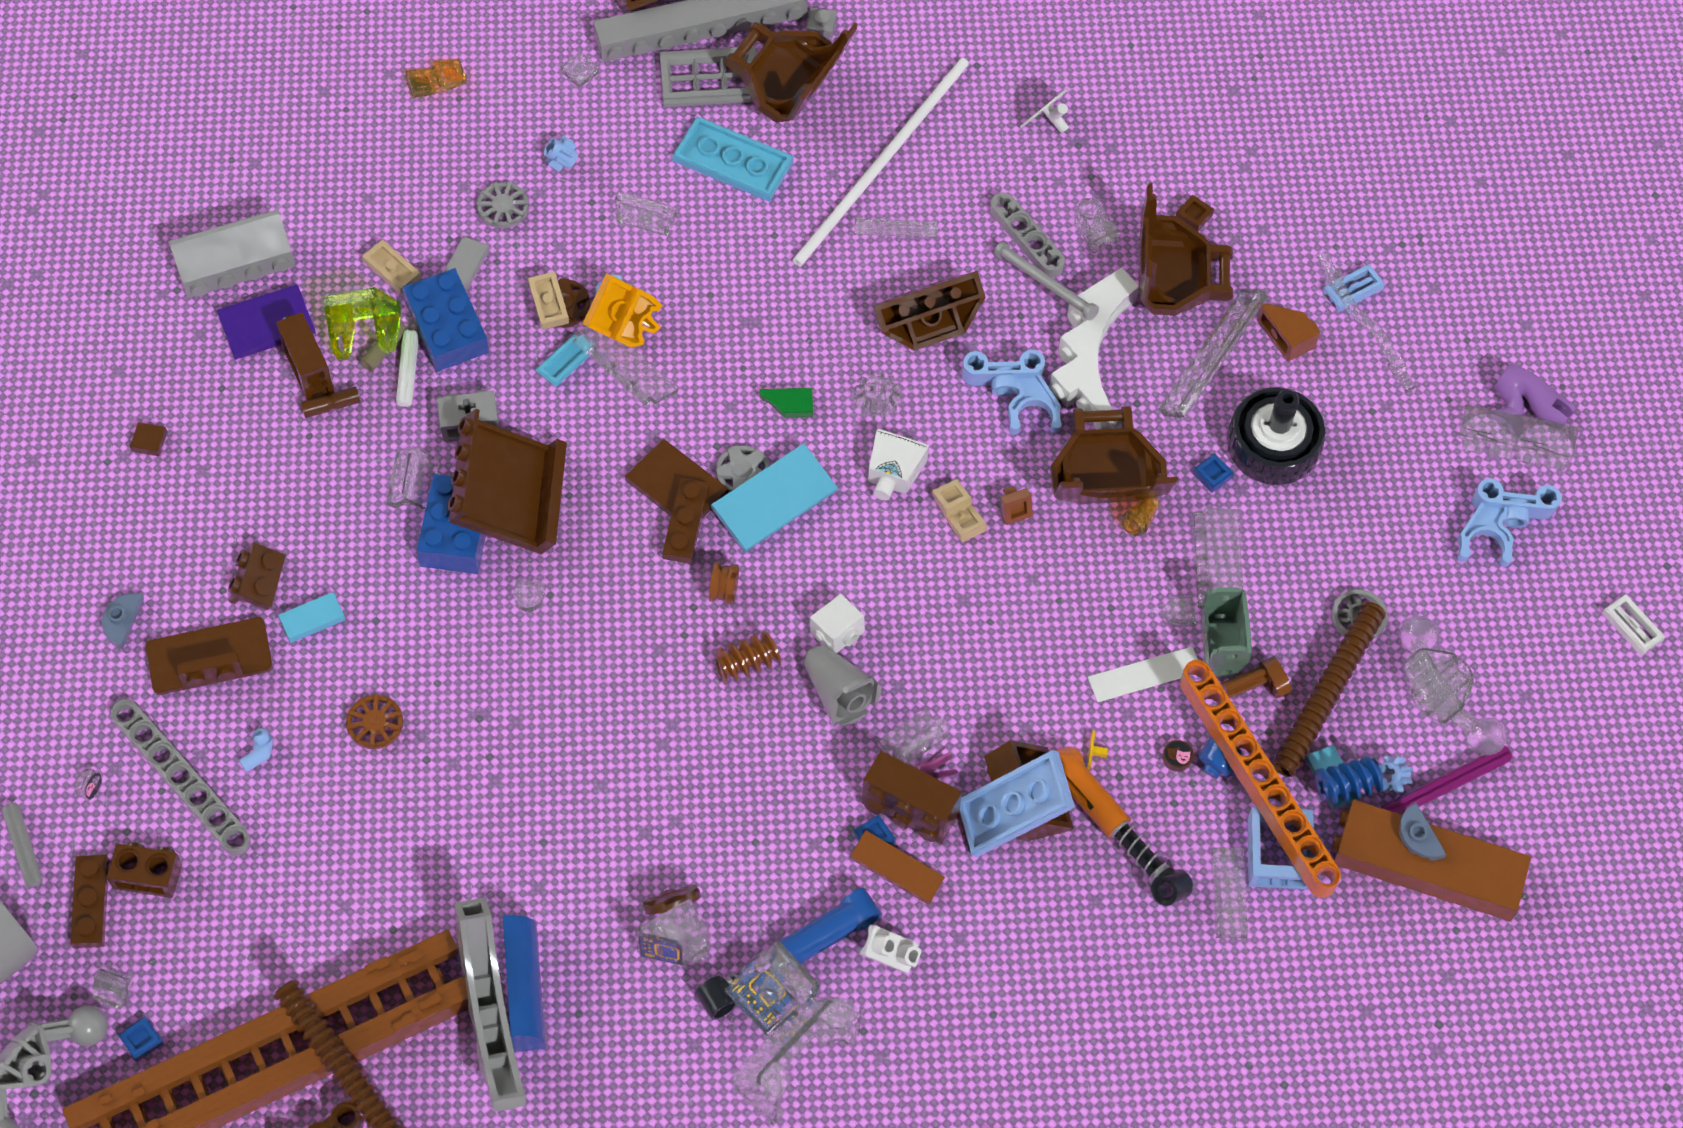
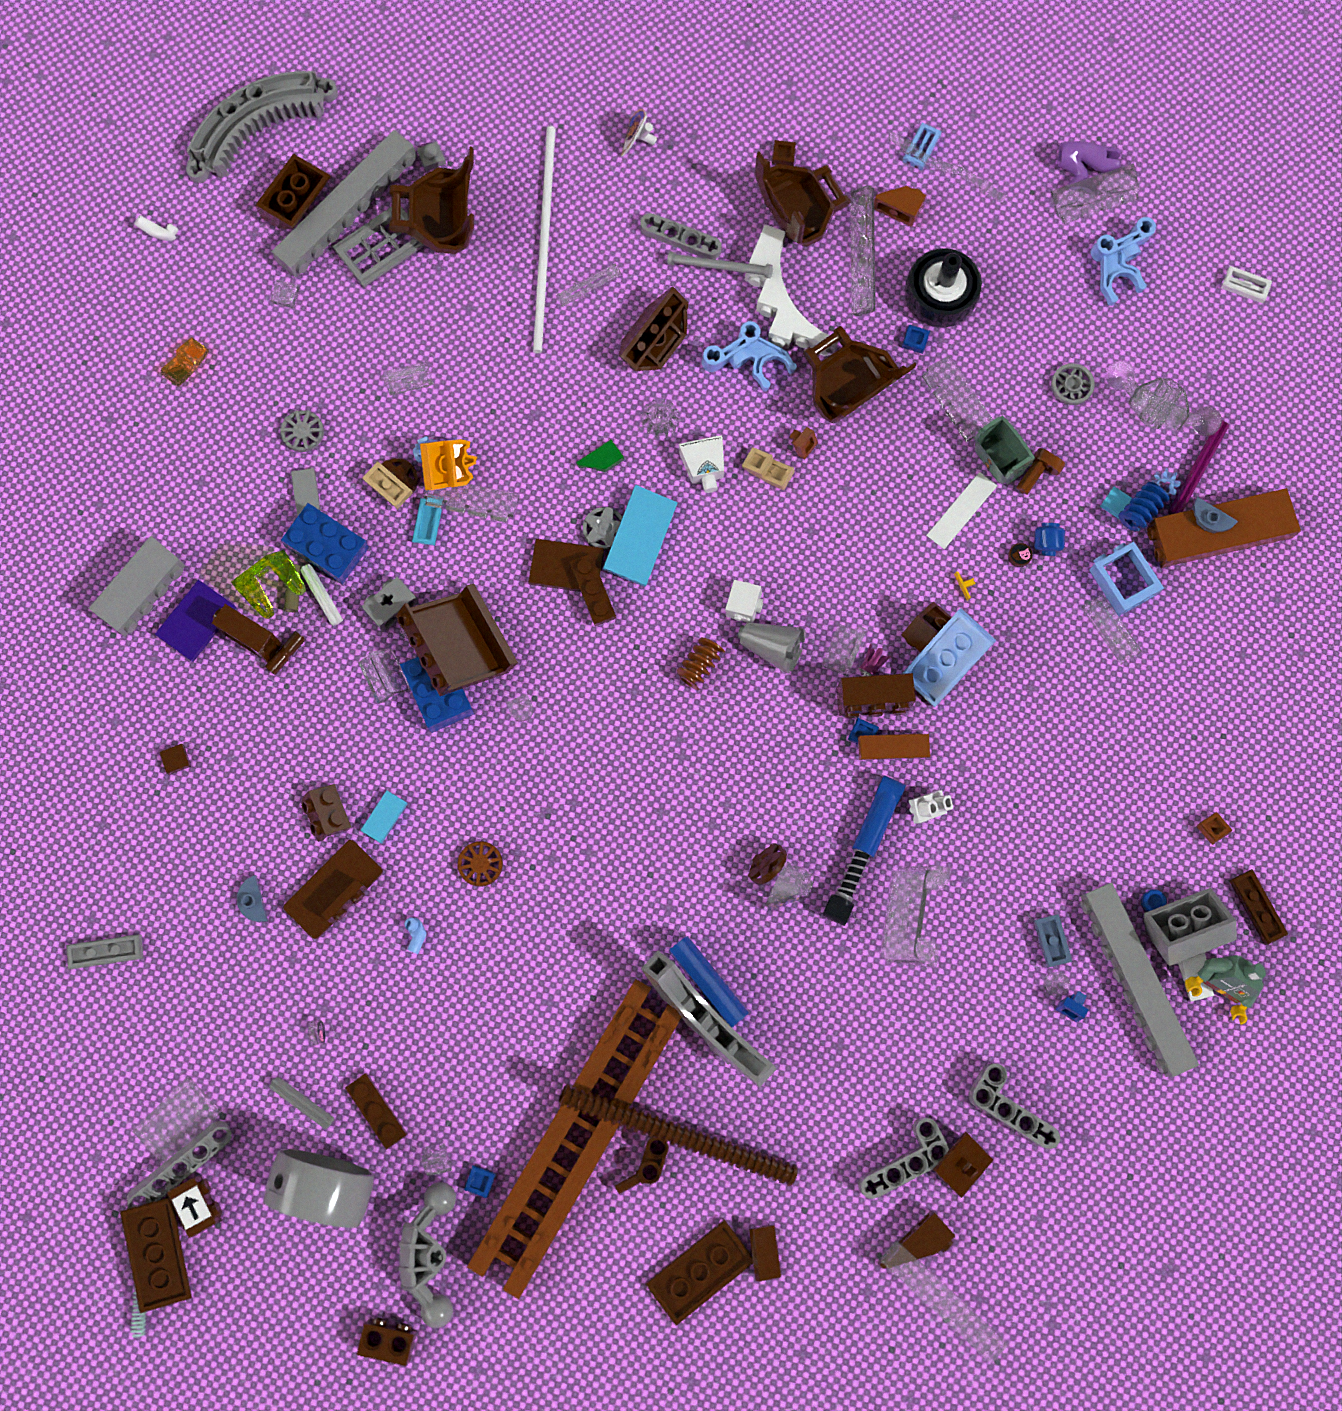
camera: 30 degrees left, 15 degrees up
(142, 877) = (402, 1072): reddish brown brick -> none
(182, 790) = (363, 986): light grey beam -> none
(391, 266) = (256, 526): tan plate -> none
(560, 153) = (317, 367): light blue gear -> none
(724, 582) = (649, 619): dark orange wheel -> none
(733, 158) = (439, 298): medium azure tile -> none
(773, 988) = (875, 882): clear slope -> none
(1098, 229) = (726, 204): clear piece -> none
(1115, 824) = (1014, 628): piece -> none
(1139, 517) = (890, 401): clear yellow cone -> none
(1180, 612) = (958, 452): clear tile -> none
(1260, 791) = (1102, 541): orange beam -> none
(1328, 689) = (1089, 452): reddish brown piece -> none

